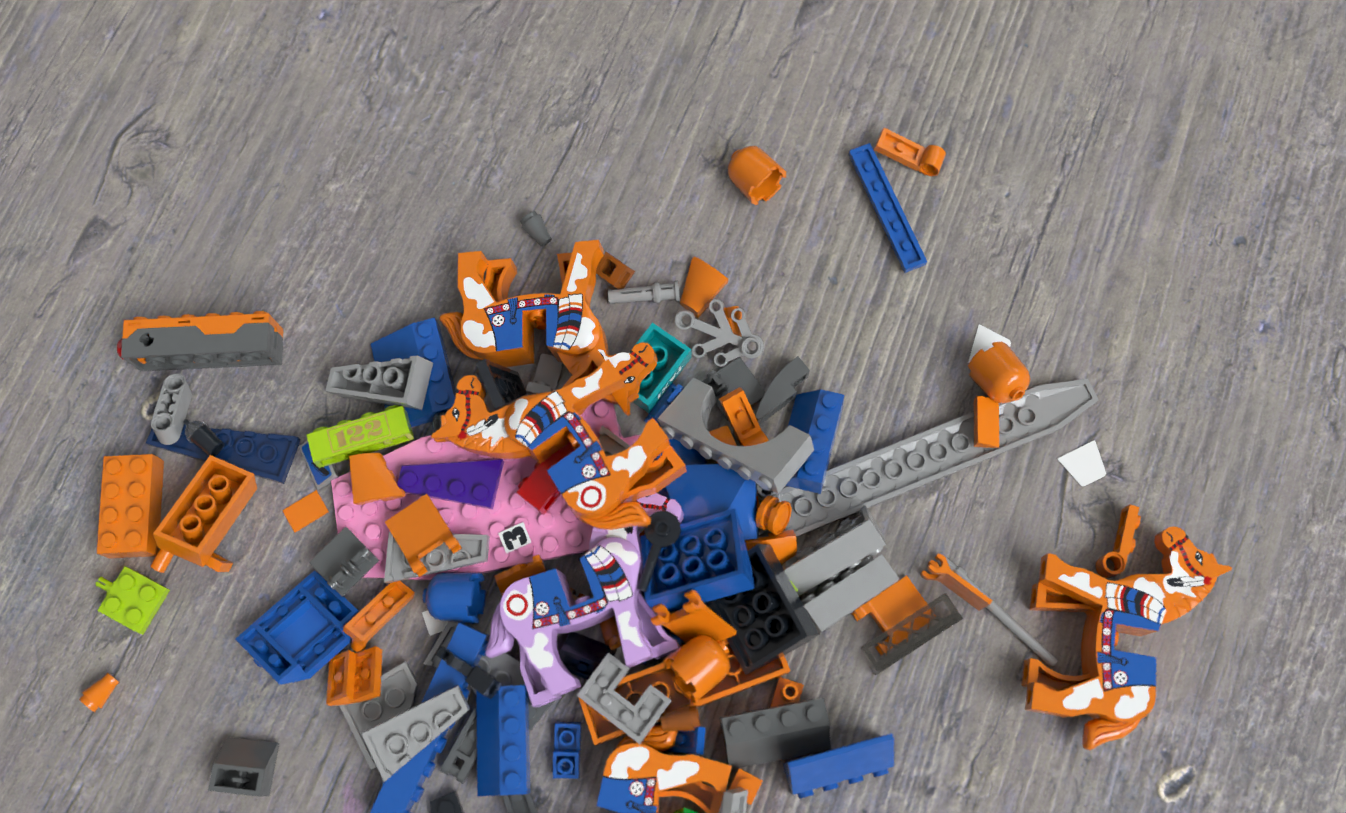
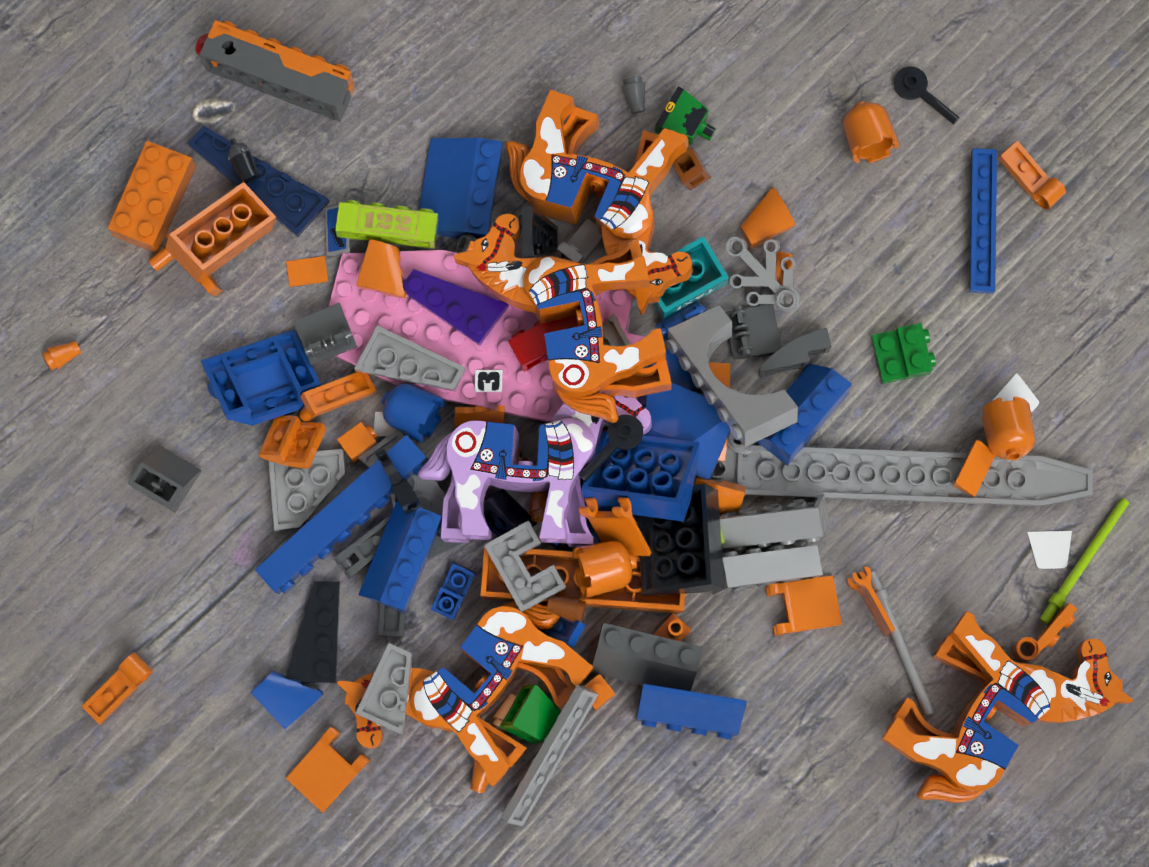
camera: 20 degrees right, 5 degrees up
(132, 599) = (121, 283): lime plate -> none
(171, 409) = (225, 110): light grey beam -> none
(390, 382) = (432, 185): light grey wedge -> none
(408, 733) = (320, 512): light grey wing -> none
(416, 648) = (358, 441): none -> orange brick
(419, 531) = (406, 337): orange flag -> none
(588, 225) = (686, 117): none -> torso
(656, 292) = (721, 207): light grey pin -> none
(742, 418) = (746, 364): orange plate -> none
(771, 121) = (912, 83): none -> black piece
(773, 515) = (733, 465): orange wheel -> none
(874, 350) = (903, 353): none -> green plate
(911, 644) = (809, 638): clear smoke fence -> none
(1115, 507) = (1057, 599): none -> lime bar

